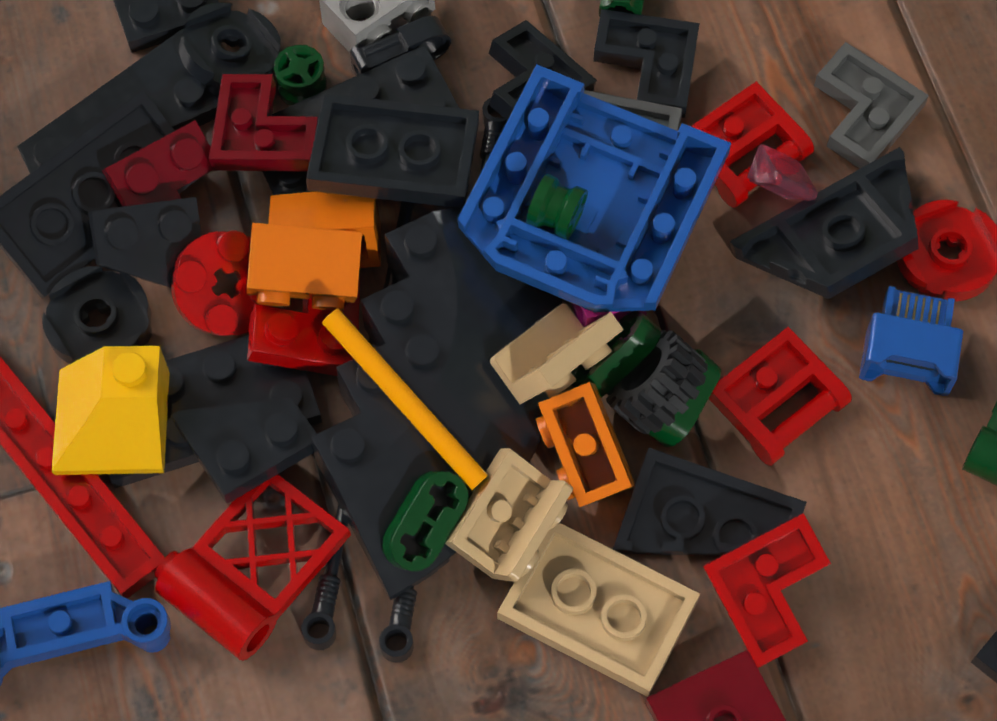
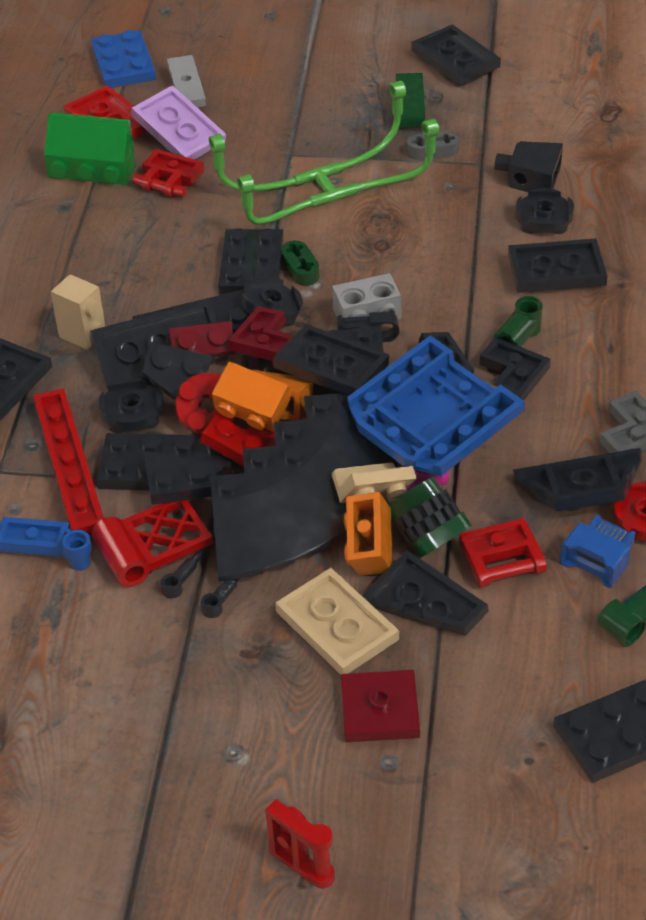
camera: 25 degrees right, 20 degrees down
(112, 413) = (115, 442): yellow slope -> none
(302, 63) = (301, 316): dark green wheel -> none
(404, 398) = (271, 471): light orange bar -> none
(436, 526) = (259, 545): dark green beam -> none
(509, 517) = (302, 552): tan bracket -> none
(557, 206) = (405, 404): dark green wheel -> none
(747, 123) = (548, 417): red plate -> none
(752, 582) = (433, 631): red plate -> none
(781, 175) = (559, 443): clear pink slope -> none

